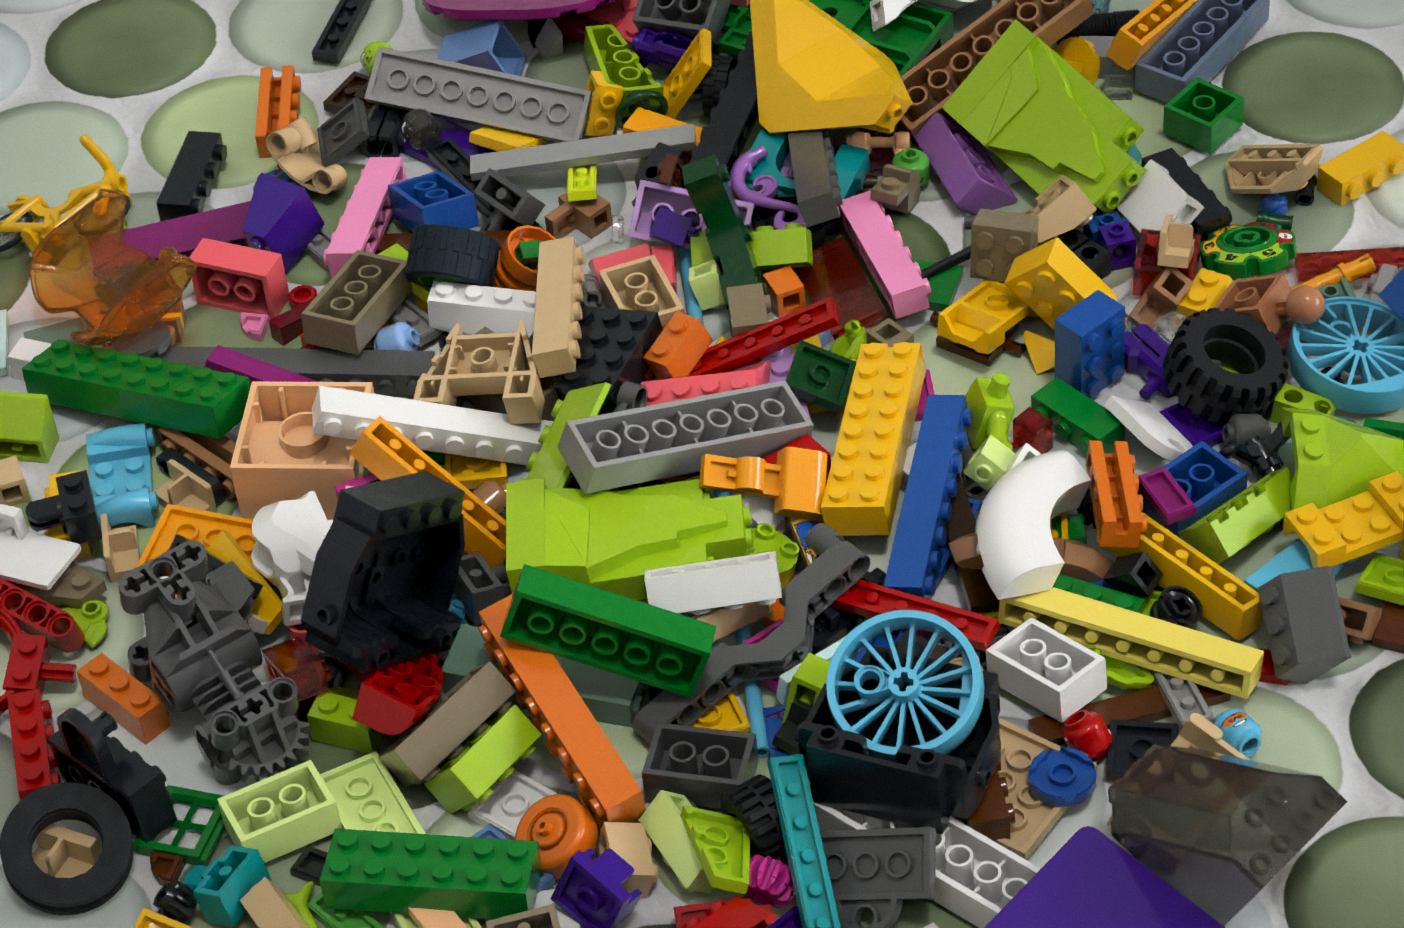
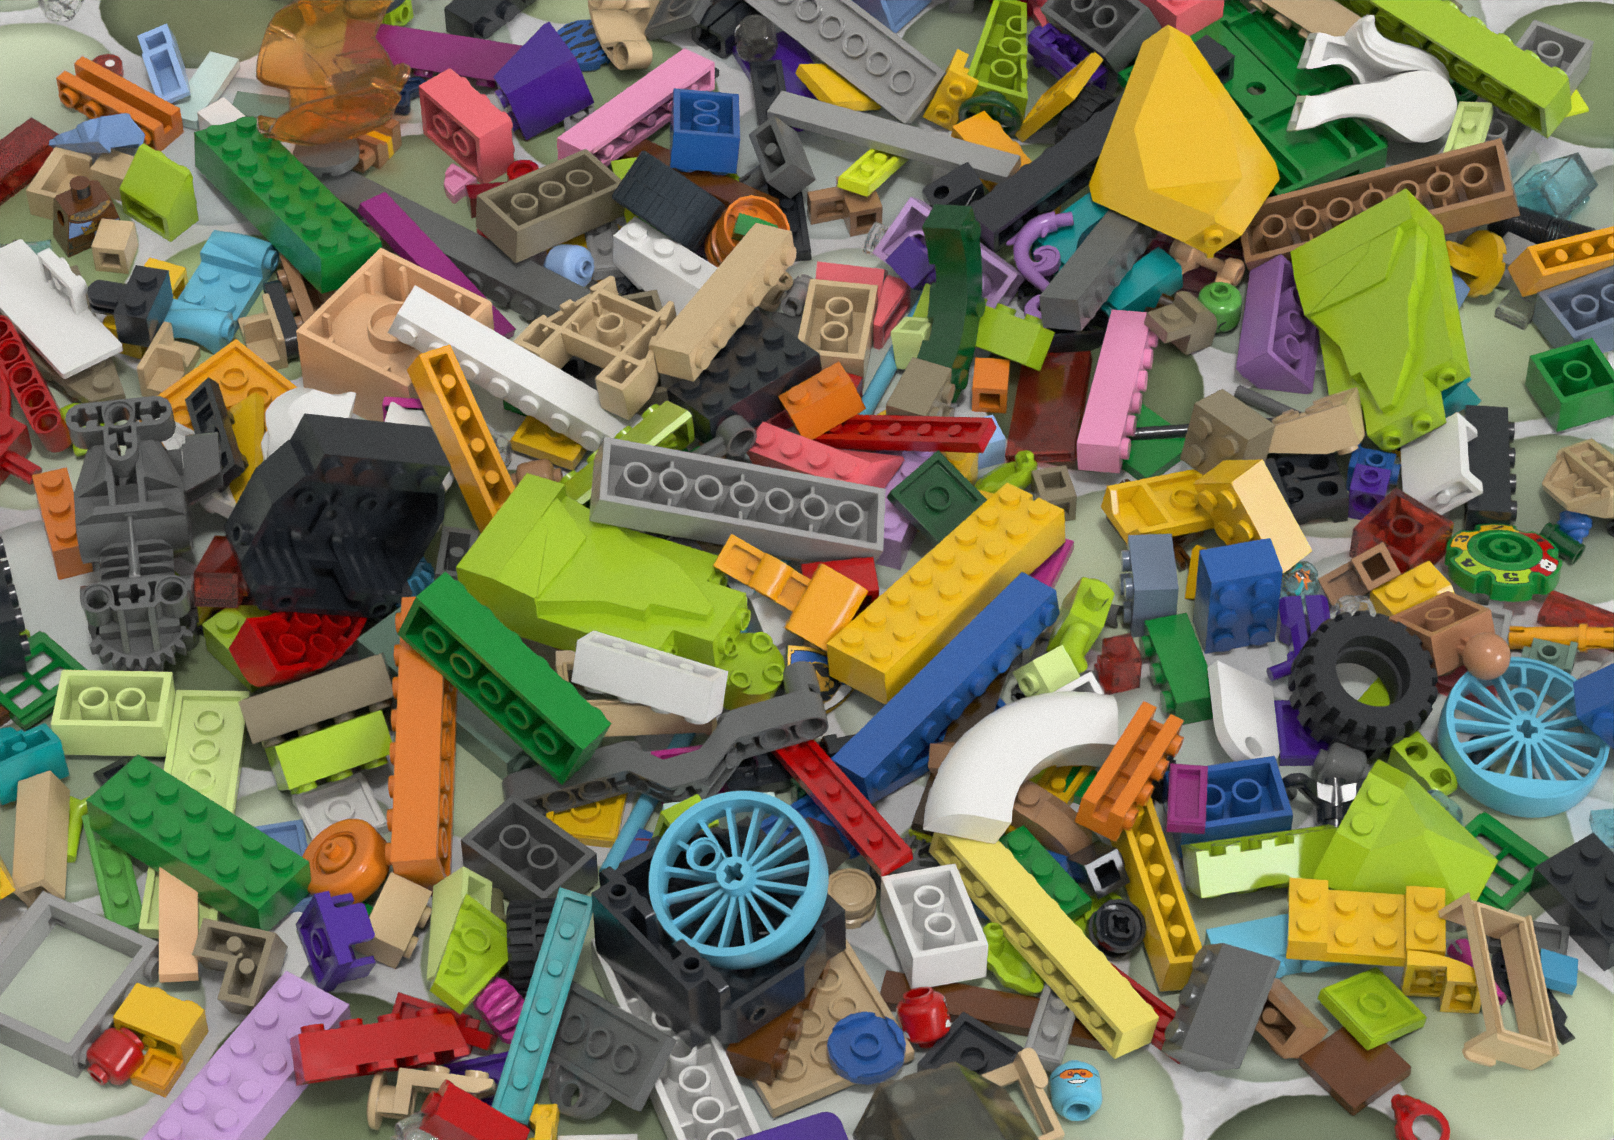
camera: 25 degrees right, 5 degrees up
(670, 170) = (949, 195): reddish brown plate -> none
(1021, 360) = (1148, 580): none -> sand blue brick
(1175, 244) = (1401, 522): tan panel -> none

